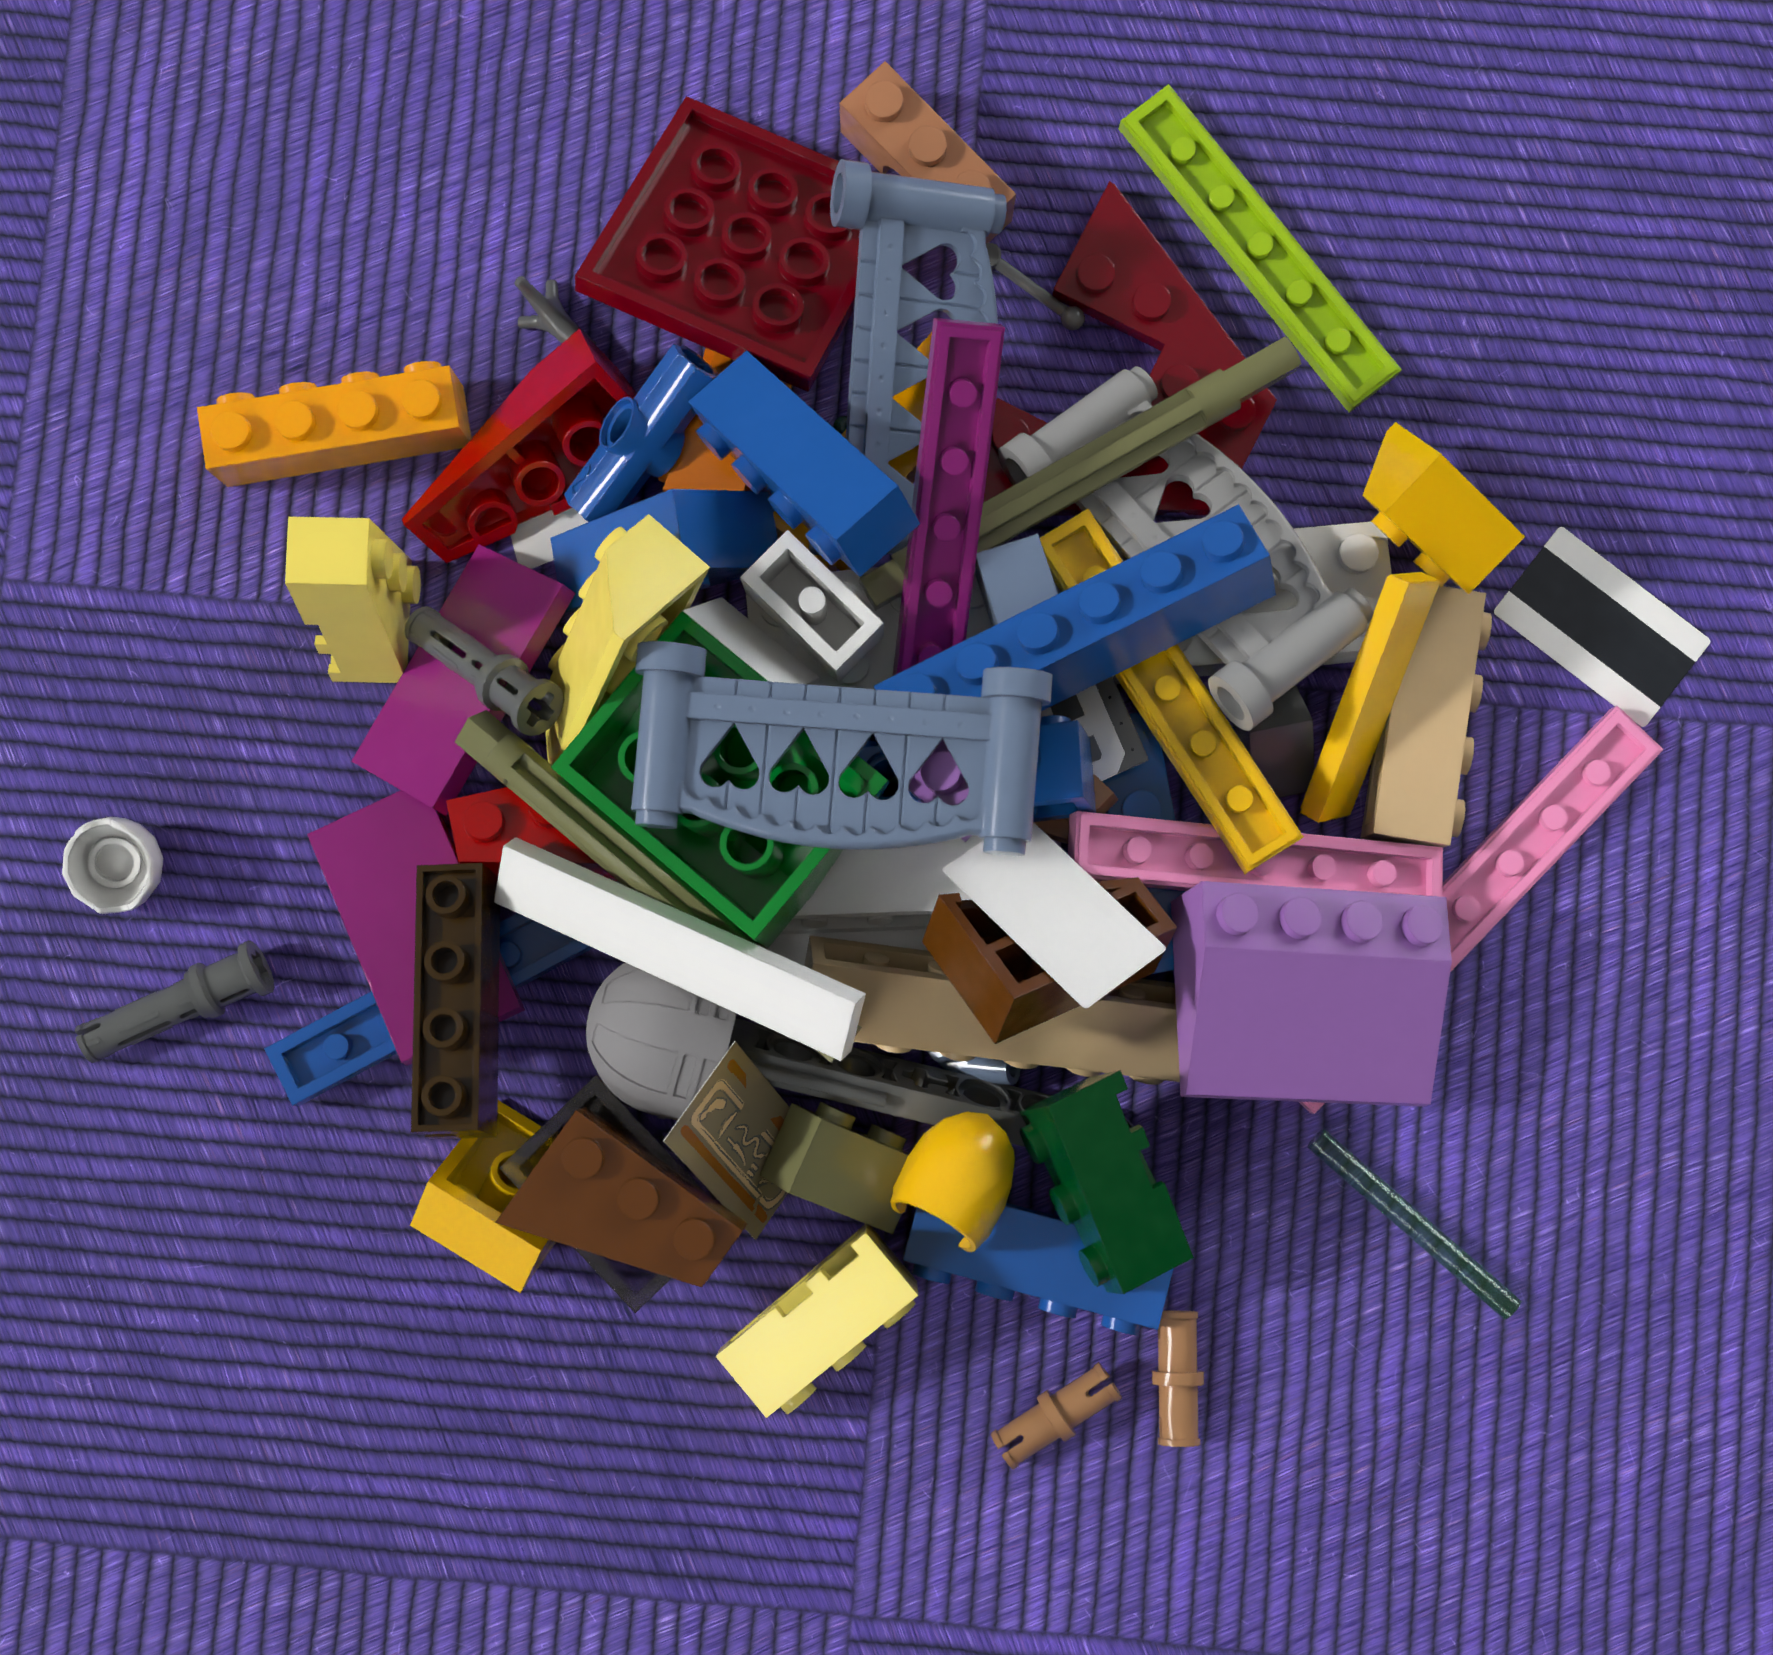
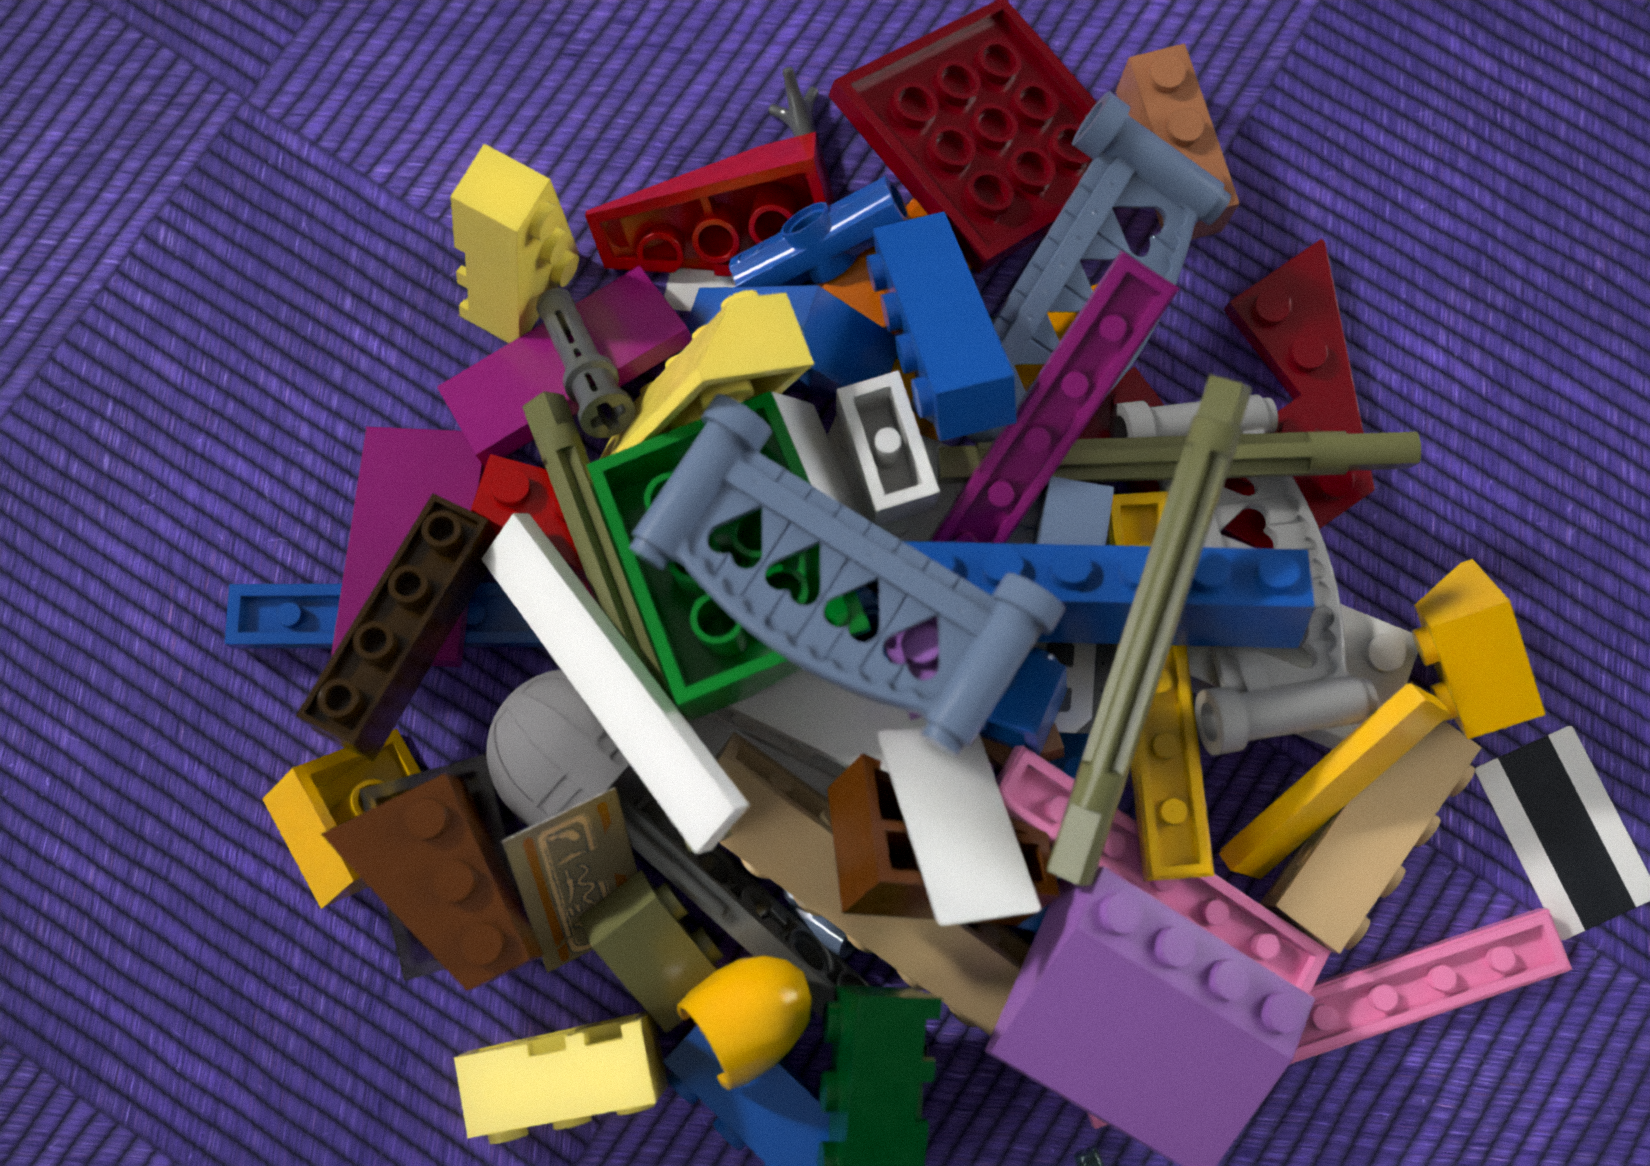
camera: 25 degrees right, 5 degrees down
(112, 864) = (195, 367): white hair -> none
(201, 992) = (206, 511): dark grey pin -> none
(334, 425) = (574, 109): light orange brick -> none
(1071, 317) = (1232, 333): dark grey hinge -> none
(1135, 652) = (1149, 630): none -> olive piece
(1259, 248) = (1422, 359): lime tile -> none
(1283, 745) = (1235, 785): dark grey slope -> none

